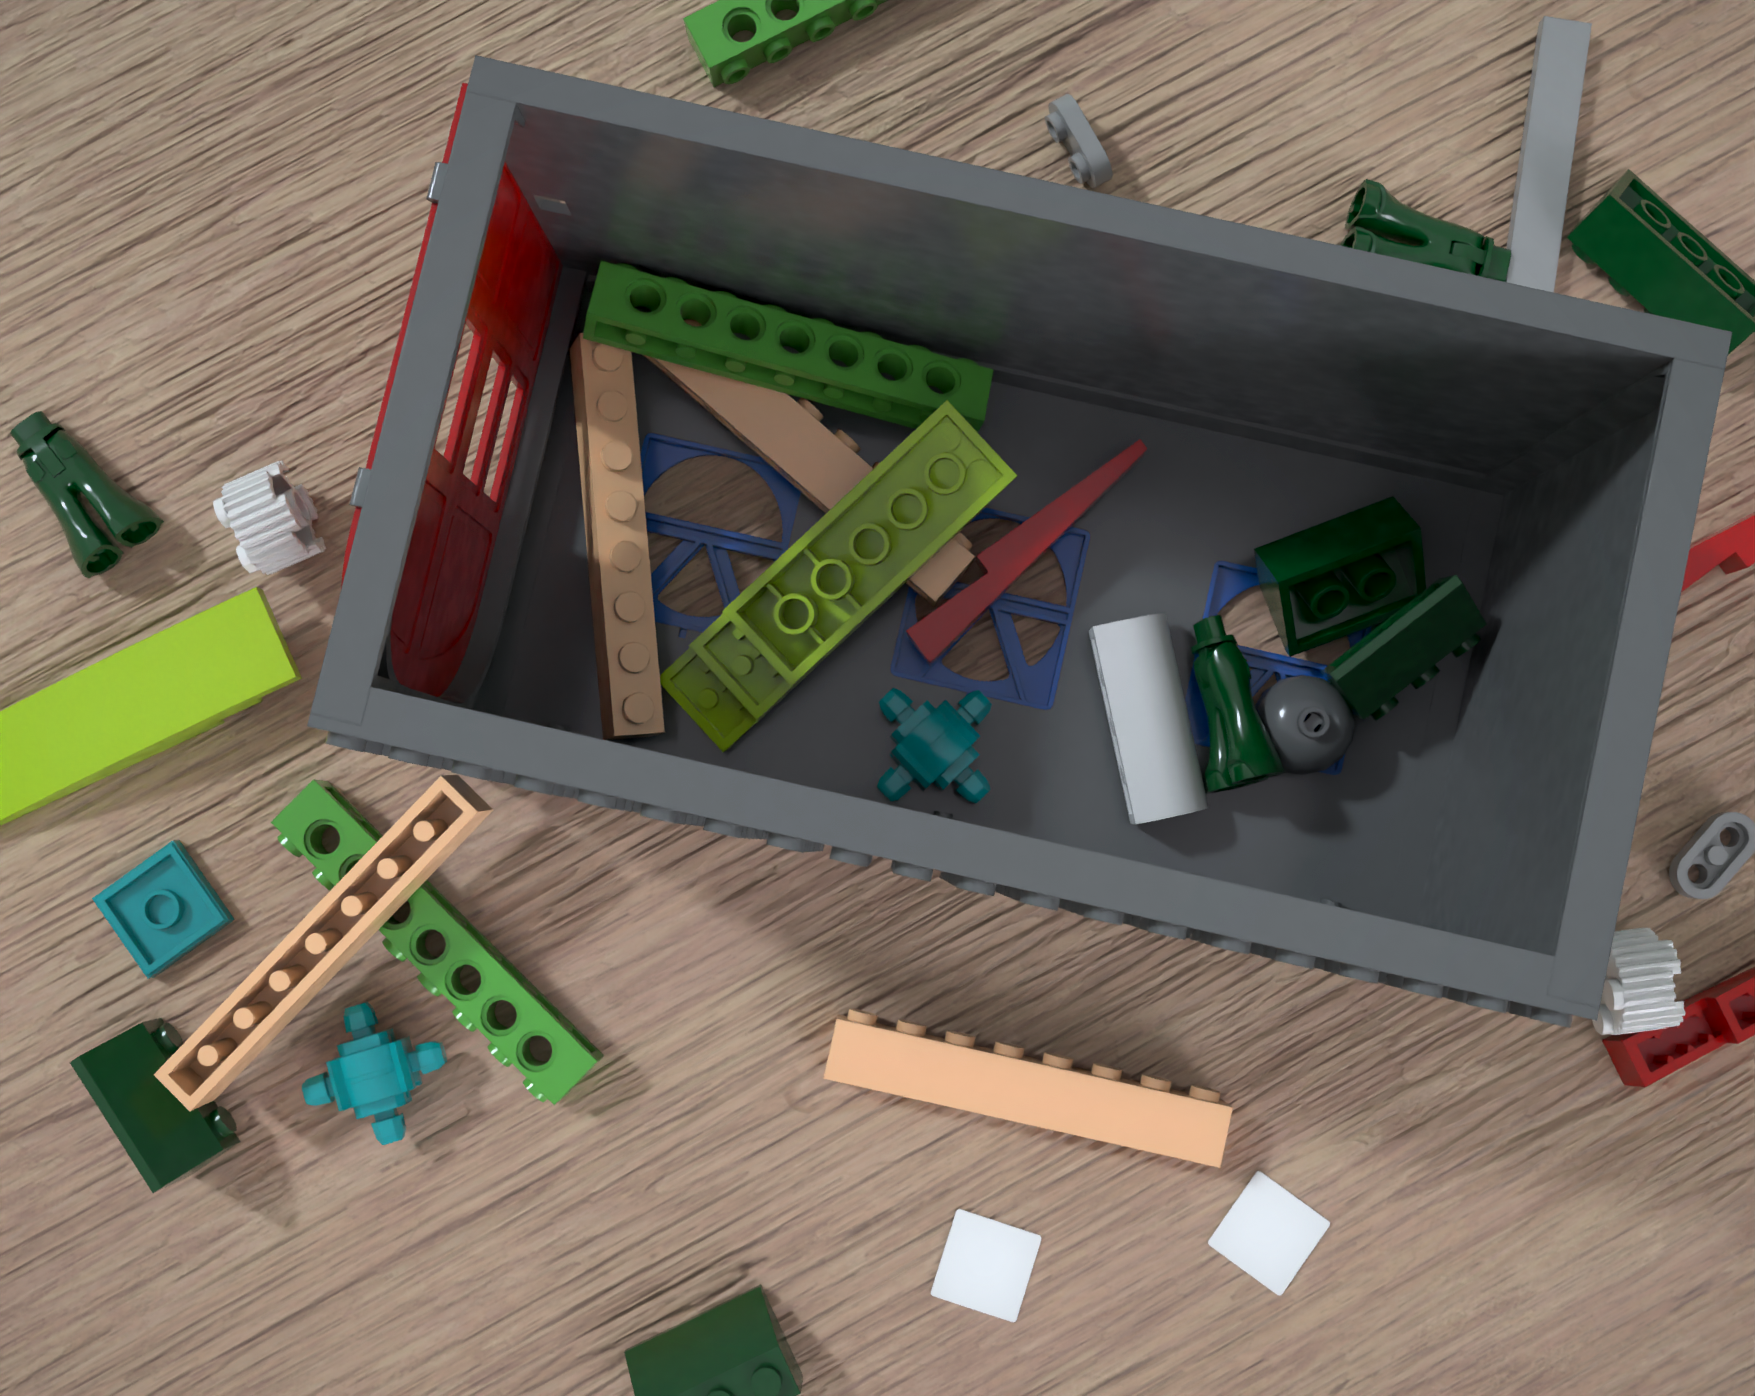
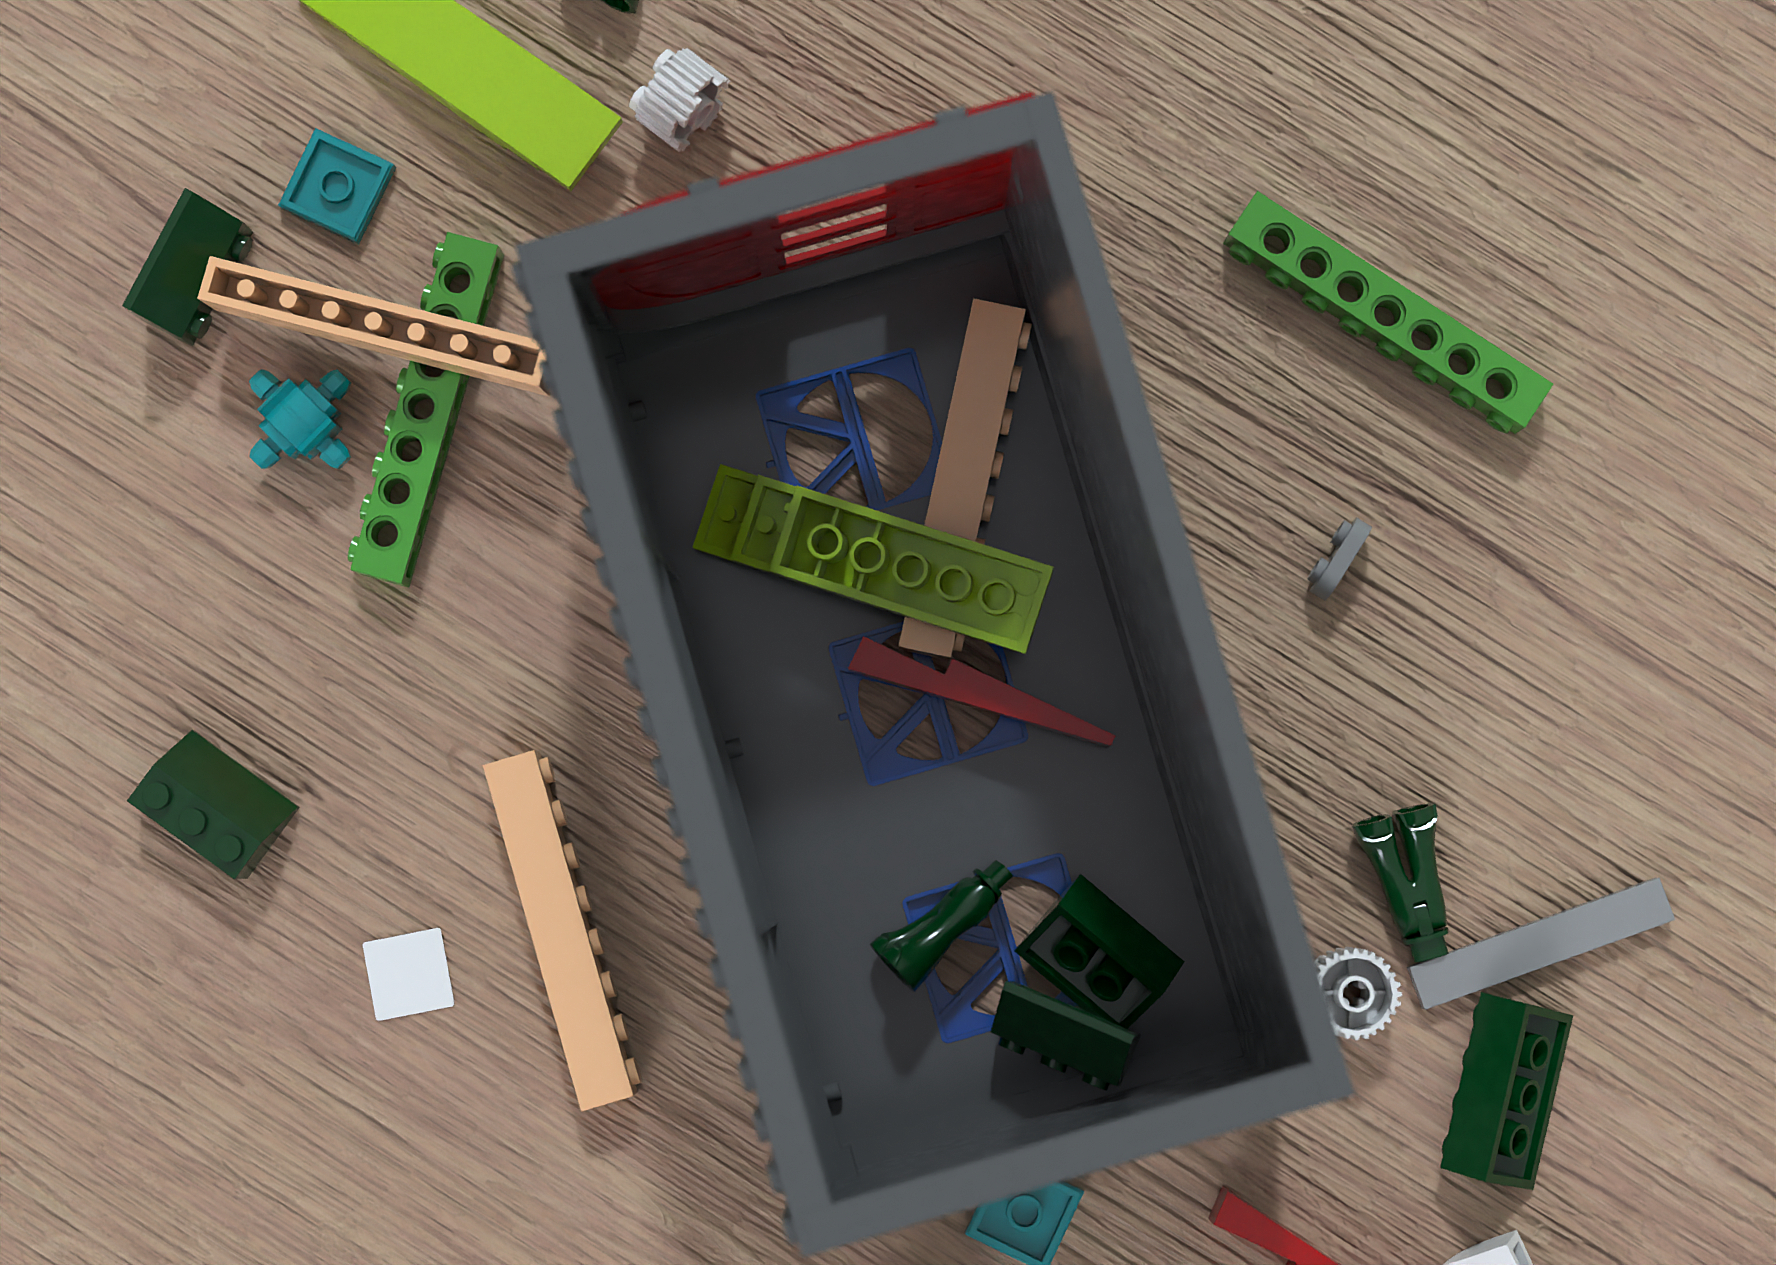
camera: 60 degrees right, 0 degrees up
(616, 541) = (813, 371): light nougat brick -> none
(763, 359) = (1009, 409): bright green brick -> none
(934, 745) = (786, 708): teal piece -> none
(1148, 718) = (902, 866): white brick -> none
(1269, 1233) = (553, 1183): white sticker -> none
(1318, 740) = (944, 986): dark grey cylinder -> none

